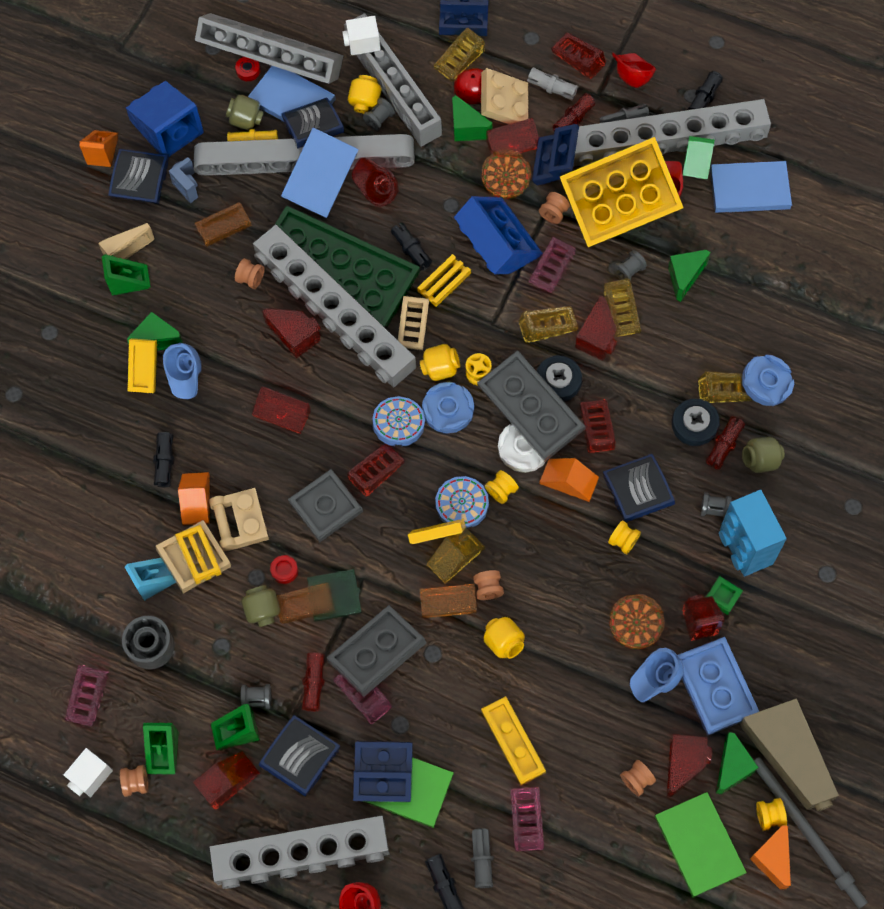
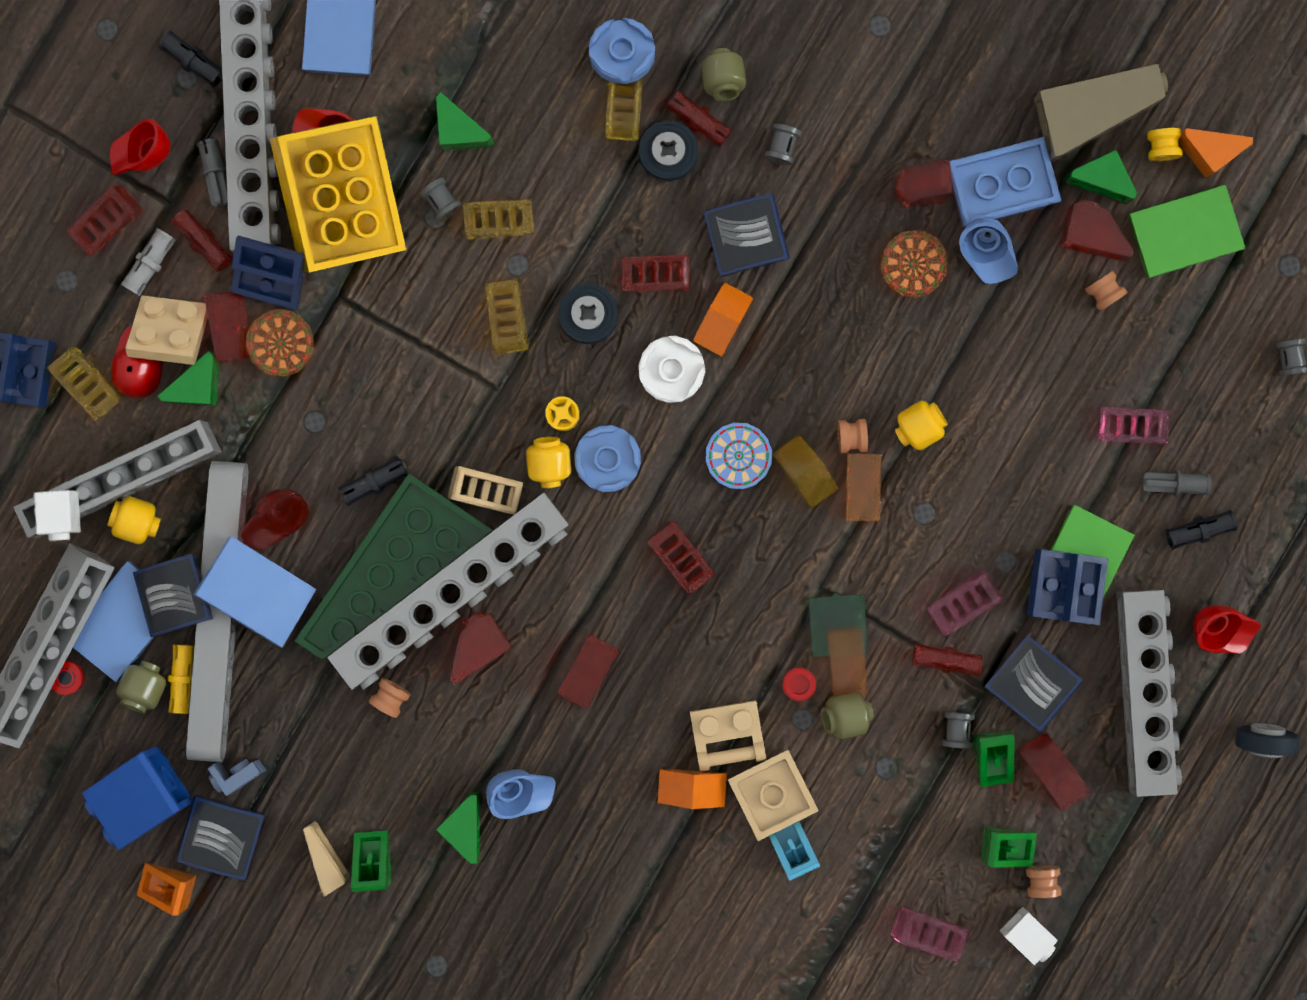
camera: 90 degrees left, 20 degrees up
(142, 365) = (508, 846): yellow tile -> none
(144, 628) = (886, 874): dark grey piece -> none
(163, 459) = (637, 825): black pin -> none
(206, 574) = (781, 801): yellow tile -> none
(223, 224) = (306, 728): clear orange tile -> none
(325, 505) = (721, 626): dark grey tile -> none
(376, 650) = (919, 580): dark grey tile -> none
(378, 114) = (167, 503): dark grey bush -> none
(398, 421) = (621, 523): medium blue tile -> none
(436, 531) = (778, 490): yellow tile -> none
(457, 266) = (409, 421): yellow tile -> none
(497, 234) = (372, 365): blue slope -> none
(501, 487) = (727, 404): yellow wheel -> none
(513, 740) = (1042, 430): yellow tile -> none
(531, 406) = (625, 353): dark grey tile -> none
(554, 207) = (342, 285): nougat wheel -> none
(555, 244) = (400, 283): clear pink slope -> none
(598, 332) = (529, 253): clear red slope -> none
(624, 537) = (810, 262): yellow wheel -> none
(698, 157) = (303, 85): slope -> none
(725, 594) = (894, 154): green tile -> none
(752, 533) = (838, 106): dark azure brick -> none
(843, 879) = (1242, 77): dark grey bar -> none

